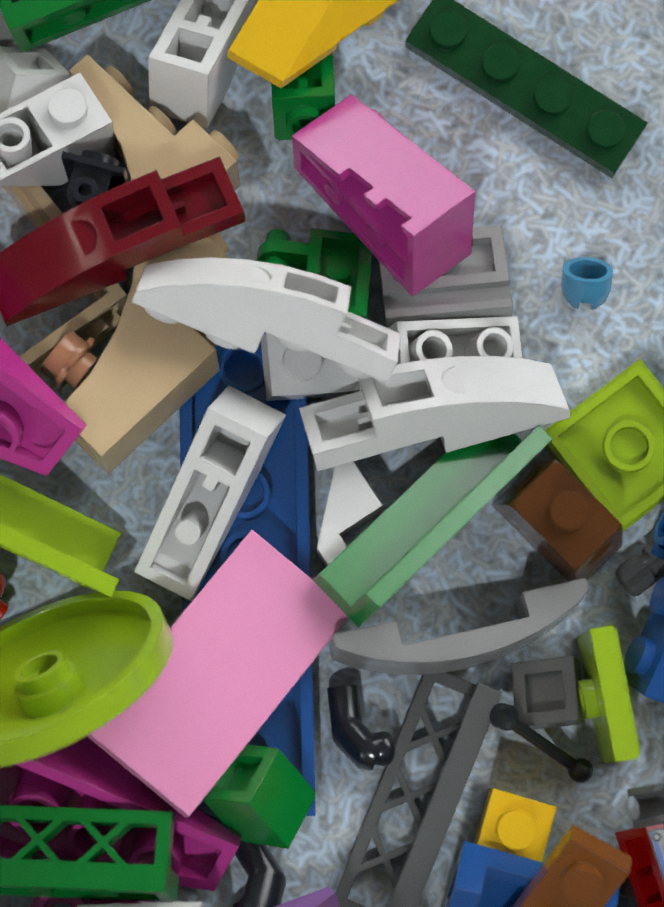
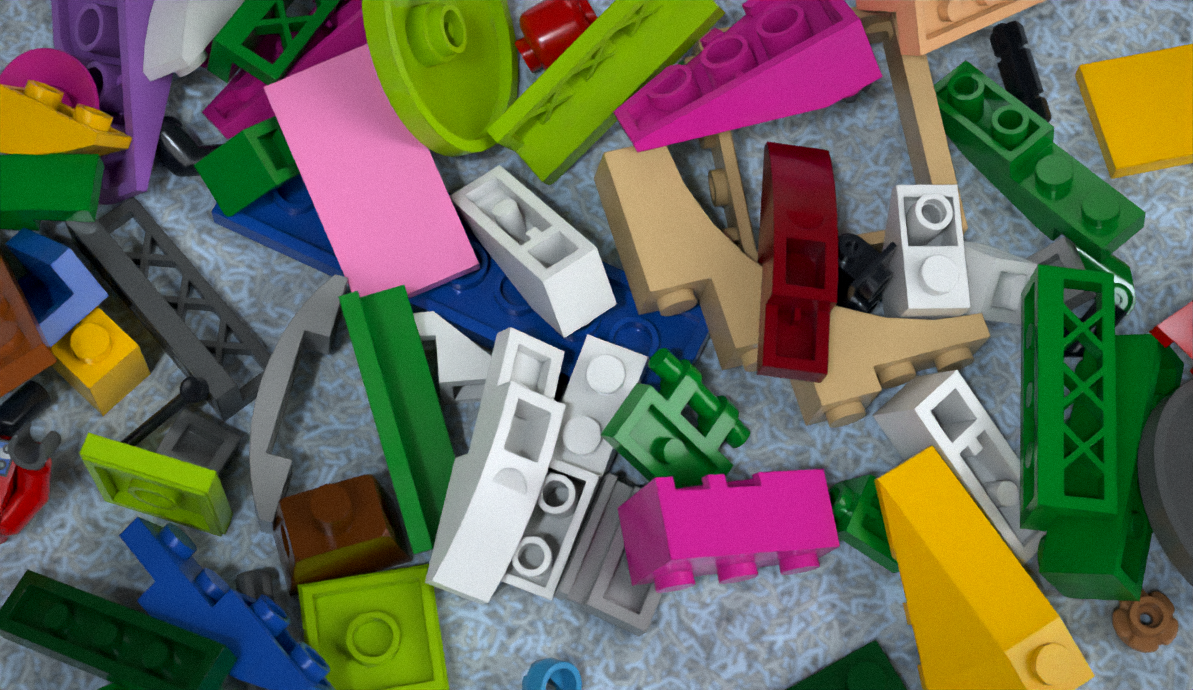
camera: 115 degrees right, 15 degrees down
(70, 361) = (707, 180): nougat plate -> none
(245, 298) = (654, 359): white slope -> none
(352, 735) = (266, 279): black arm -> none

